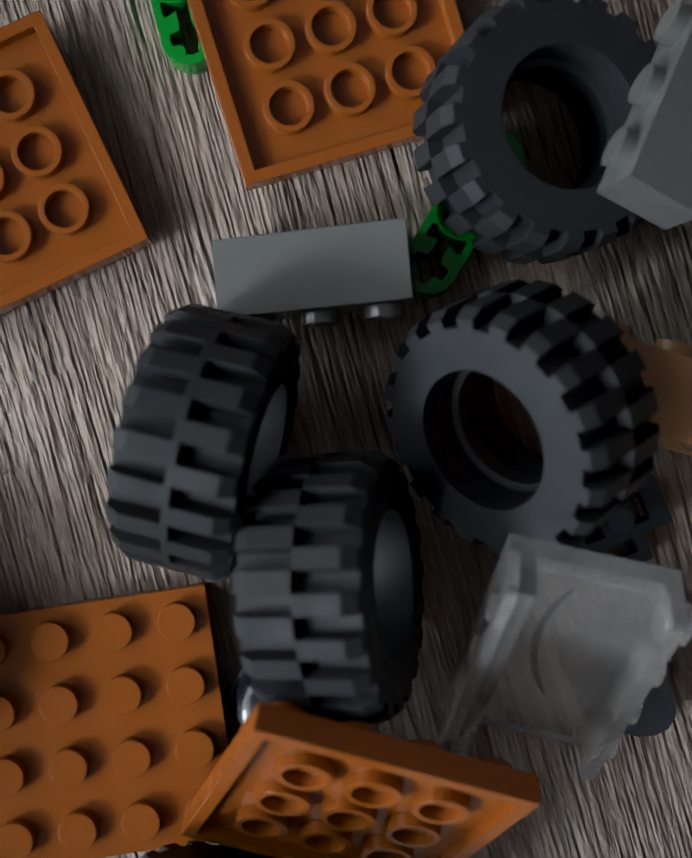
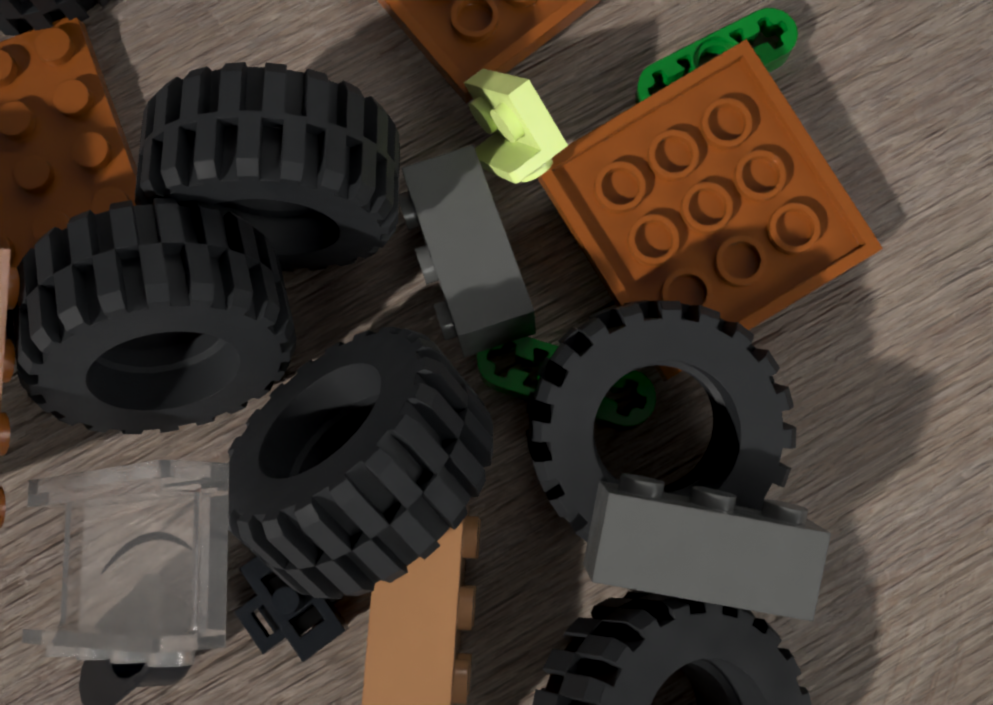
camera: 80 degrees right, 10 degrees down
(205, 190) = (522, 127): none -> yellowish green bracket

